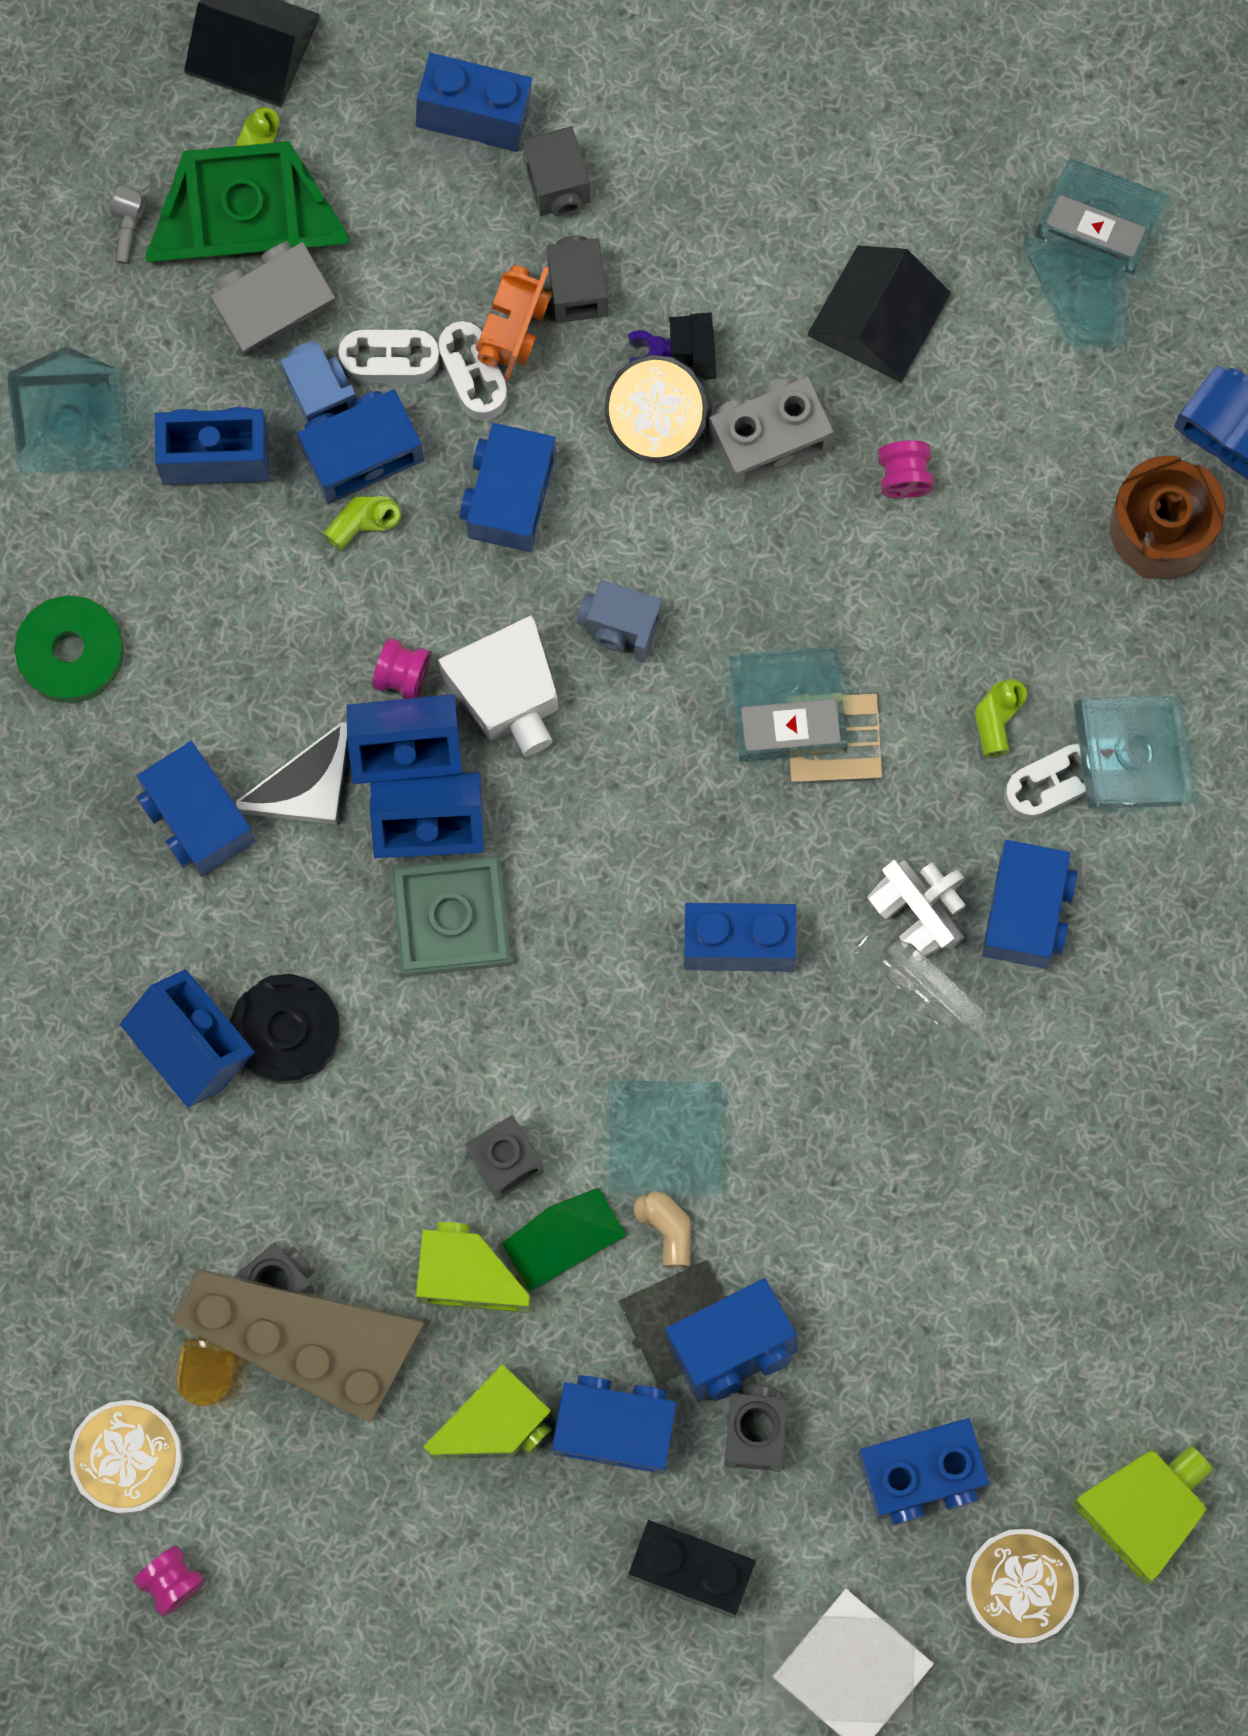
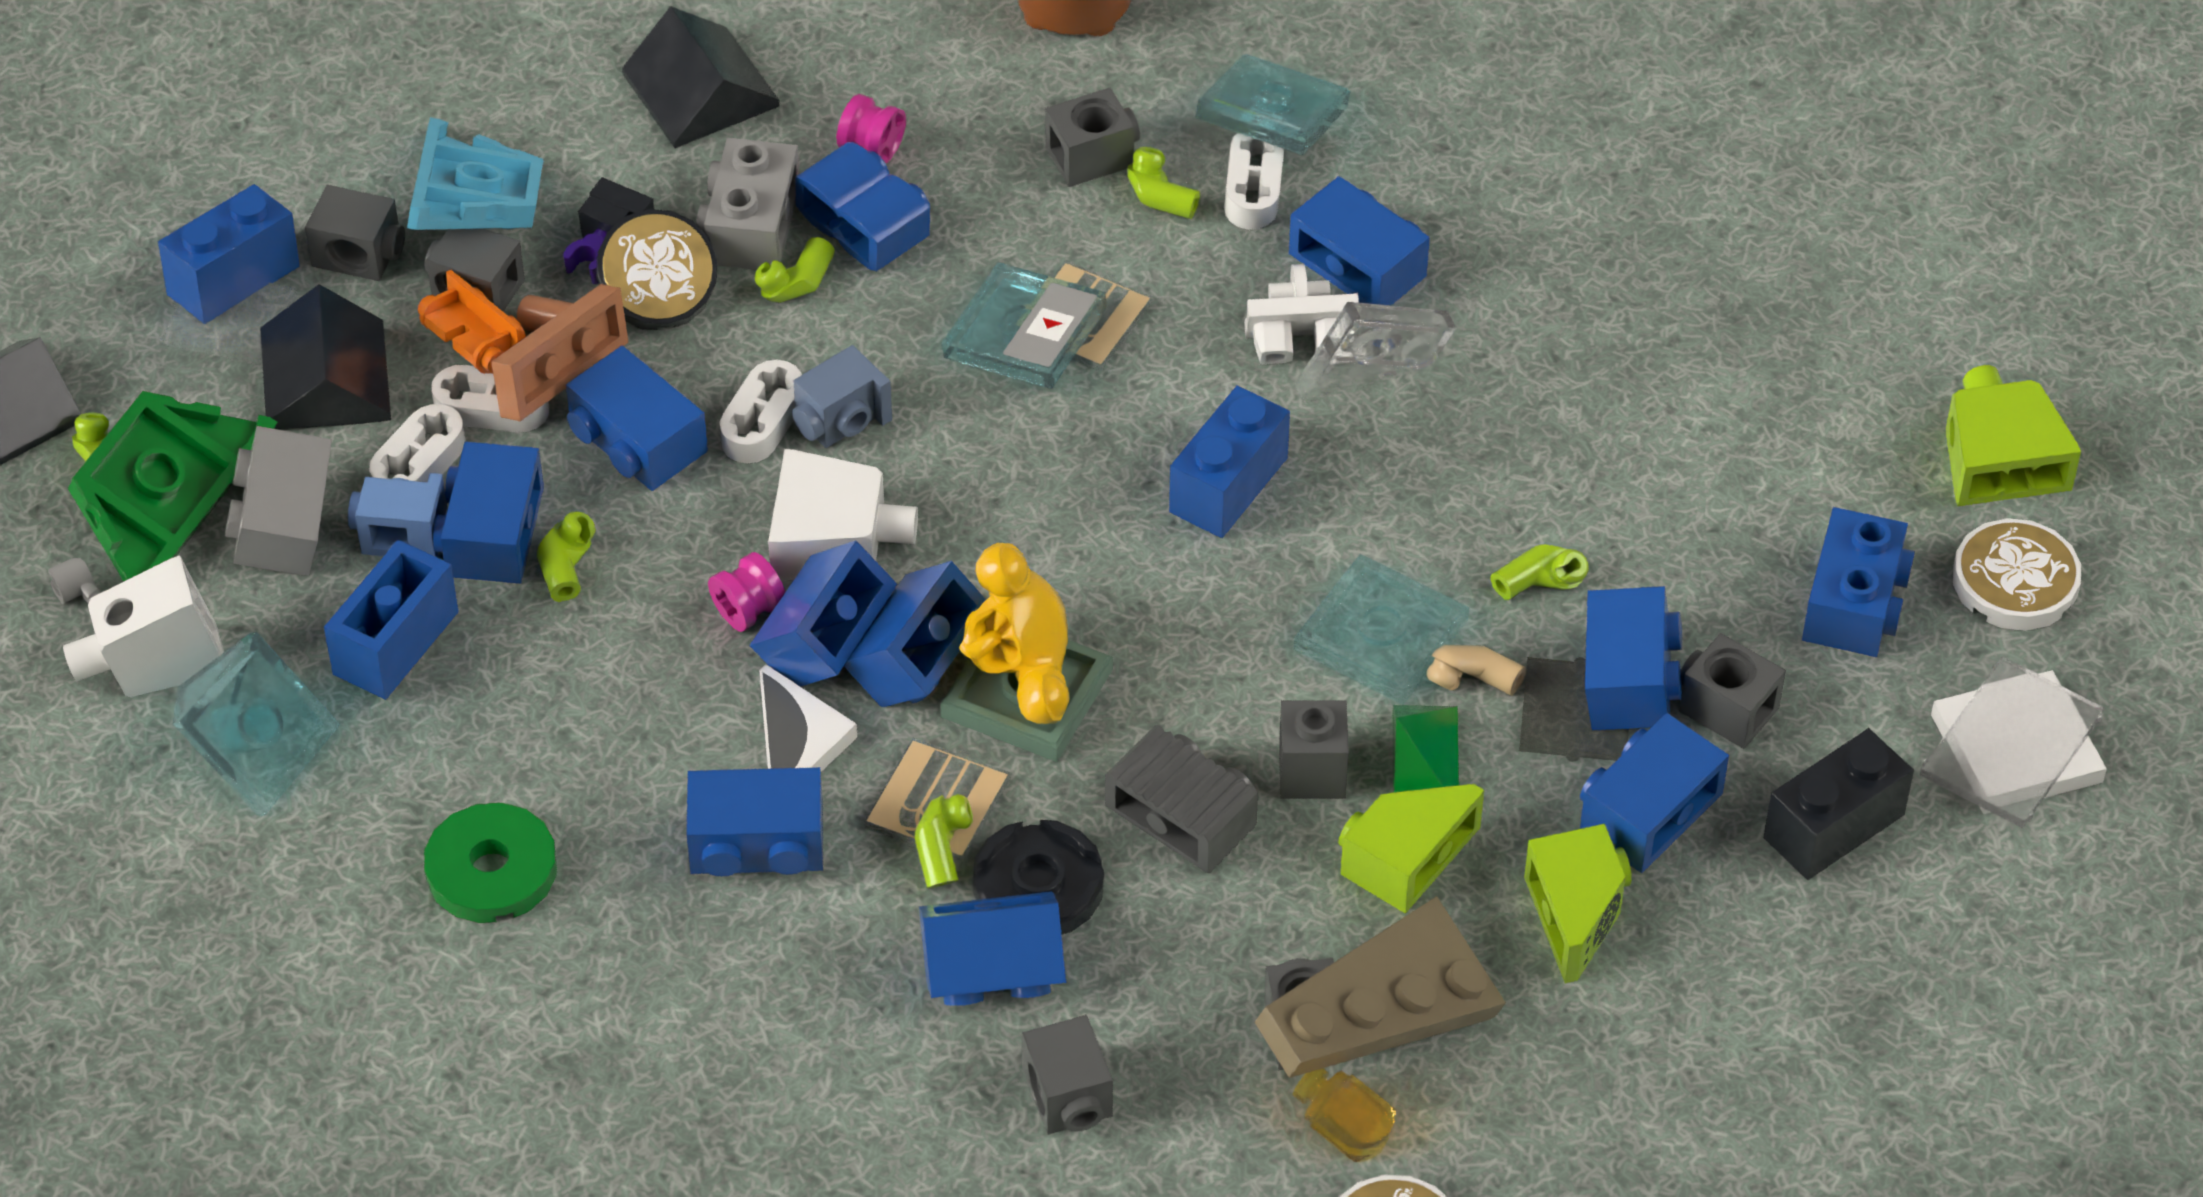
camera: 60 degrees left, 25 degrees down
(100, 297) = (148, 632): none -> white torso
(116, 1156) = (1067, 1075): none -> dark grey brick
(268, 936) = (934, 835): none -> lime arm
(313, 916) = (926, 774): none -> piece
(407, 1089) = (1182, 797): none -> dark grey brick
(425, 240) = (324, 363): none -> black slope
(465, 891) = (1020, 632): none -> yellow head
(526, 397) = (562, 345): none -> nougat piece
(581, 556) = (751, 406): none -> white beam
(647, 223) = (473, 184): none -> medium azure wing
(728, 511) = (804, 278): none -> lime arm
(797, 1222) = (1543, 567): none -> lime arm
(824, 512) = (863, 205): none -> blue brick
(1004, 614) = (1090, 136): none -> dark grey brick

